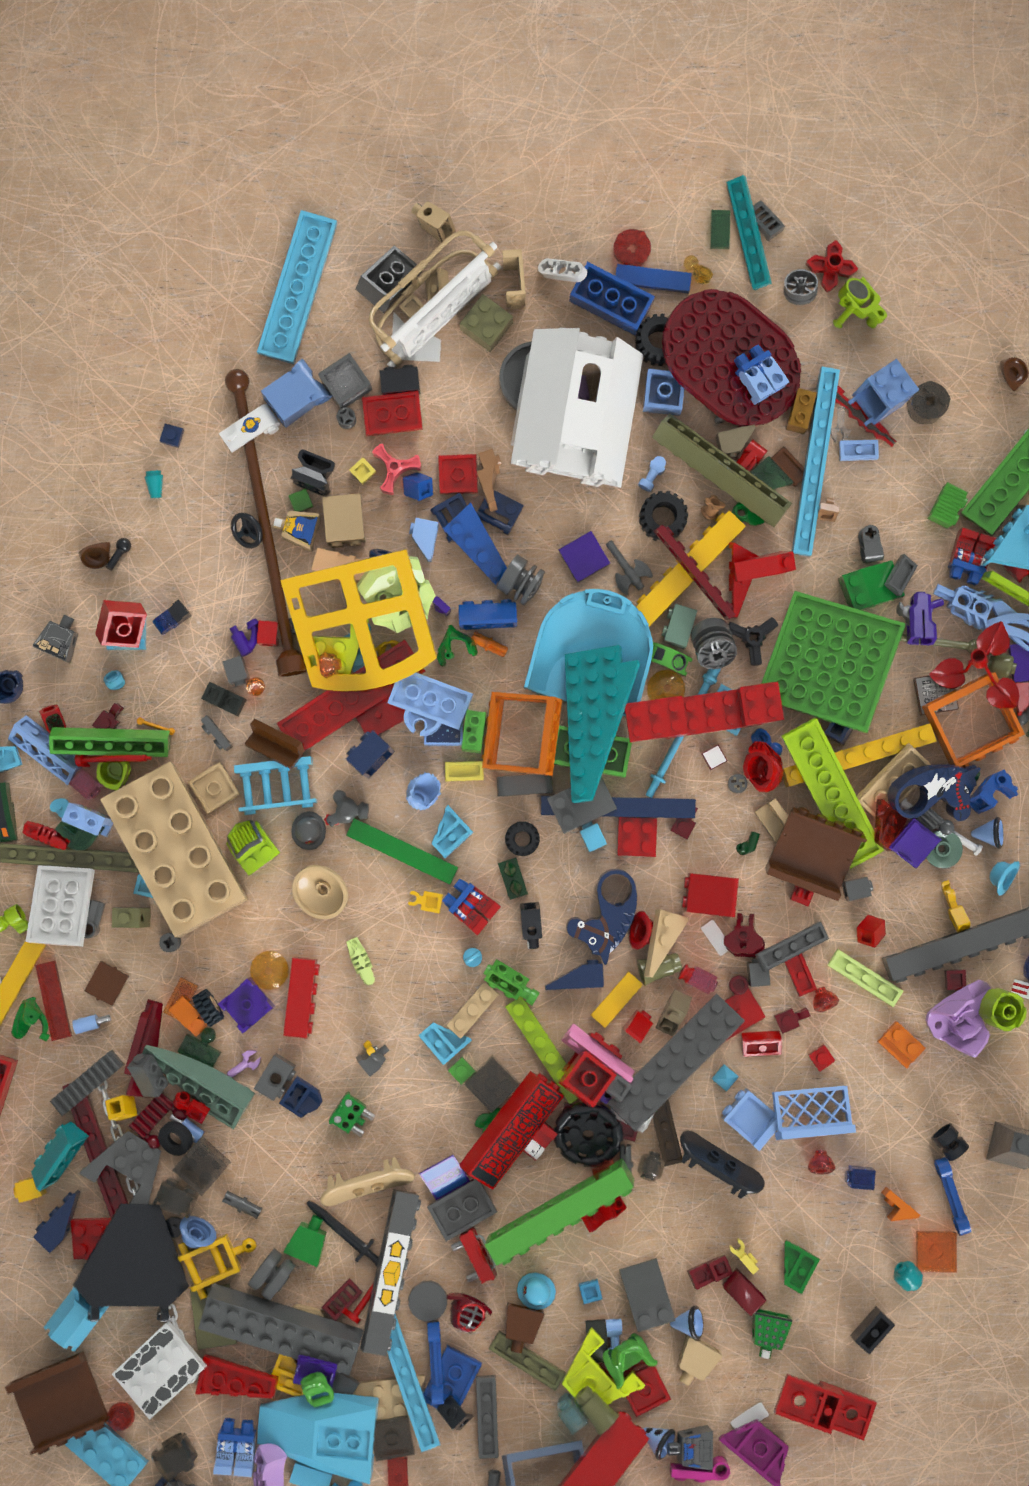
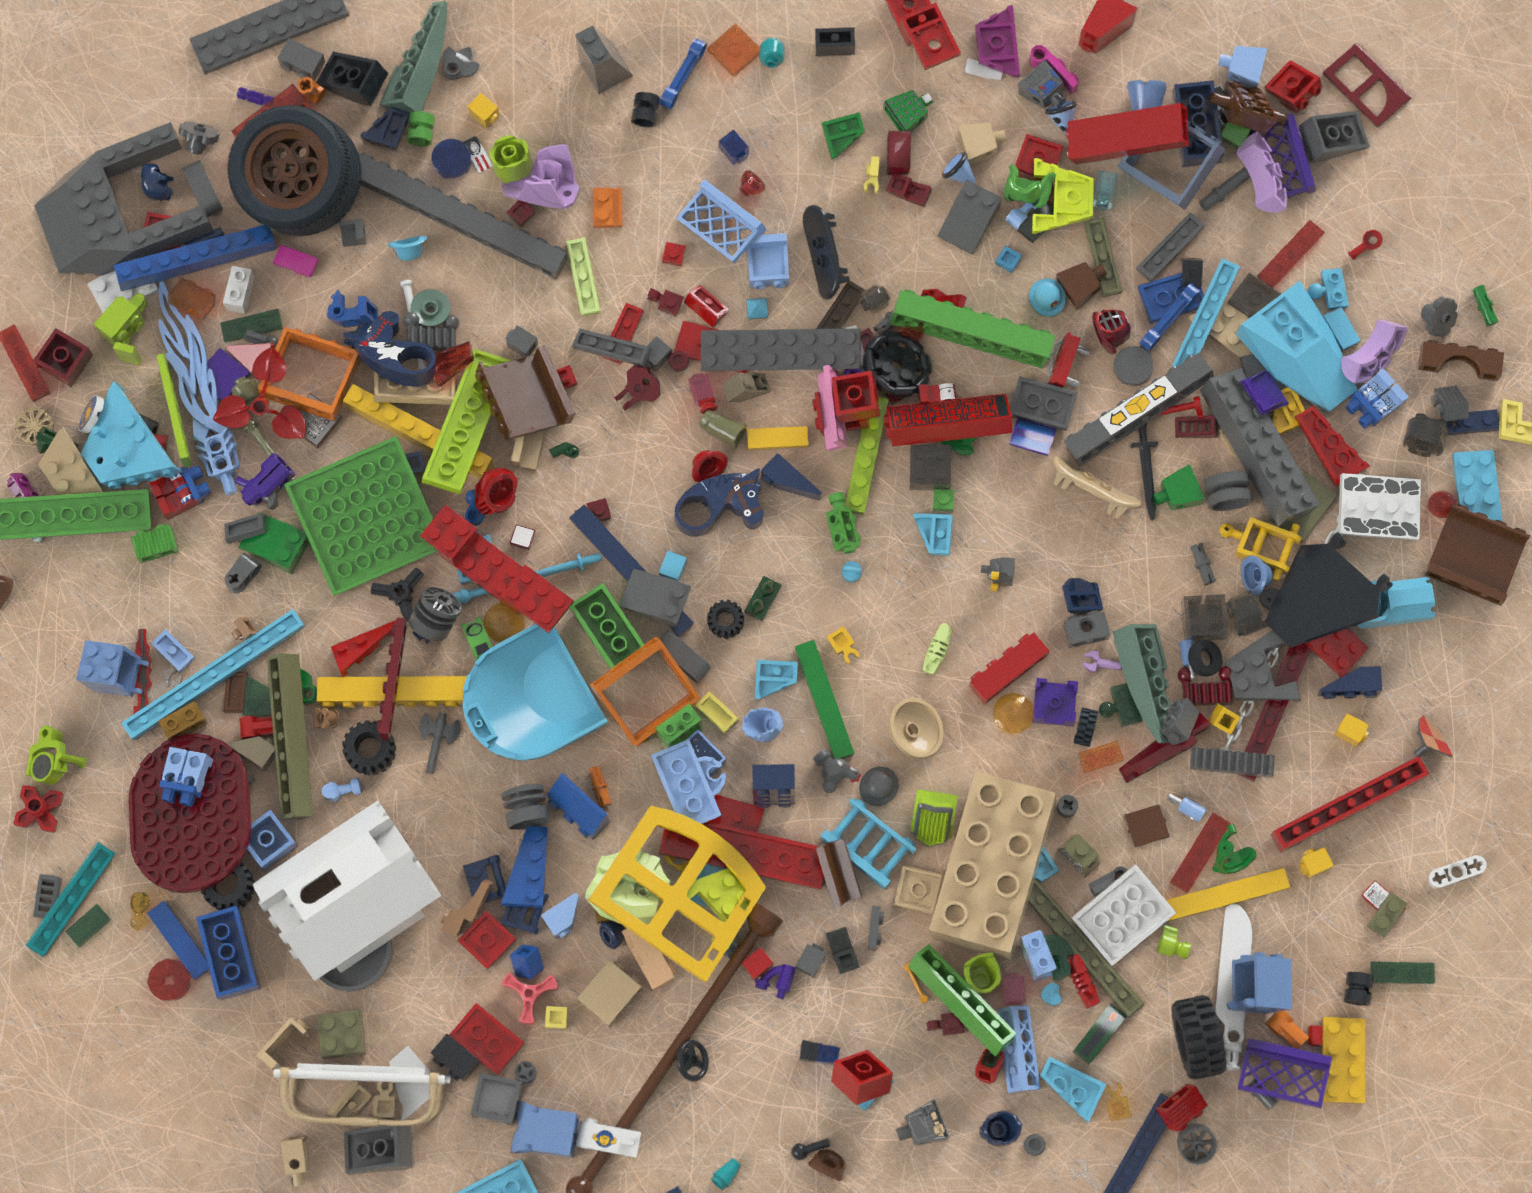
camera: 130 degrees left, 10 degrees down
(58, 1155) = (1305, 731): teal slope -> none
(82, 760) = (998, 1007): red piece -> none
(114, 680) = (911, 1050): medium azure tile -> none
(188, 1016) = (1106, 736): orange slope -> none
(195, 1109) = (1170, 663): red plate -> none
(255, 686) = (808, 933): clear orange plate -> none
(299, 528) = (650, 1022): torso -> none
(301, 501) = (627, 1043): bright green tile -> none
(313, 473) = (595, 1049): black piece -> none
(315, 1384) = (1269, 382): bright green piece -> none
(329, 664) = (735, 885): clear orange cone -> none
(346, 1107) = (1058, 557): green piece -> none
(440, 606) = (605, 848): dark purple tile -> none
(450, 635) = (618, 817): green helmet -> none
(468, 900) = (817, 614): hips -> none
(472, 1010) = (891, 533): tan plate -> none
(531, 918) = (782, 551): black torso -> none
(567, 275) = (240, 1021): white beam -> none
(584, 556) = (459, 780): dark purple tile -> none
(596, 700) = (565, 656): teal wing -> none
(596, 1409) = (1084, 174): olive plant -> none
(618, 1088) = (840, 367): dark grey plate -> none
(637, 836) = (640, 536): red plate -> none
(638, 1025) = (781, 402): red slope -> none
(664, 933) = (692, 446): tan wing -> none
(679, 626) = (445, 656): sand green brick -> none
(710, 895) = (630, 440): red slope -> none
(715, 936) = (659, 411): white sticker -> none
(737, 783) = (526, 501): dark grey tile -> none
(764, 566) = (335, 633): red slope -> none
(797, 295) = (79, 815): dark grey wheel -> none
(824, 1000) = (628, 290): clear red brick -> none
(871, 931) = (543, 303): red panel -> none
(902, 1210) = (729, 99): orange slope -> none
(914, 843) = (446, 330): dark purple piece -> none
(936, 396) = (77, 623): clear smoke brick -> none
(956, 912) = (469, 256): yellow piece -> none
(990, 833) = (385, 285): light blue hat -> none

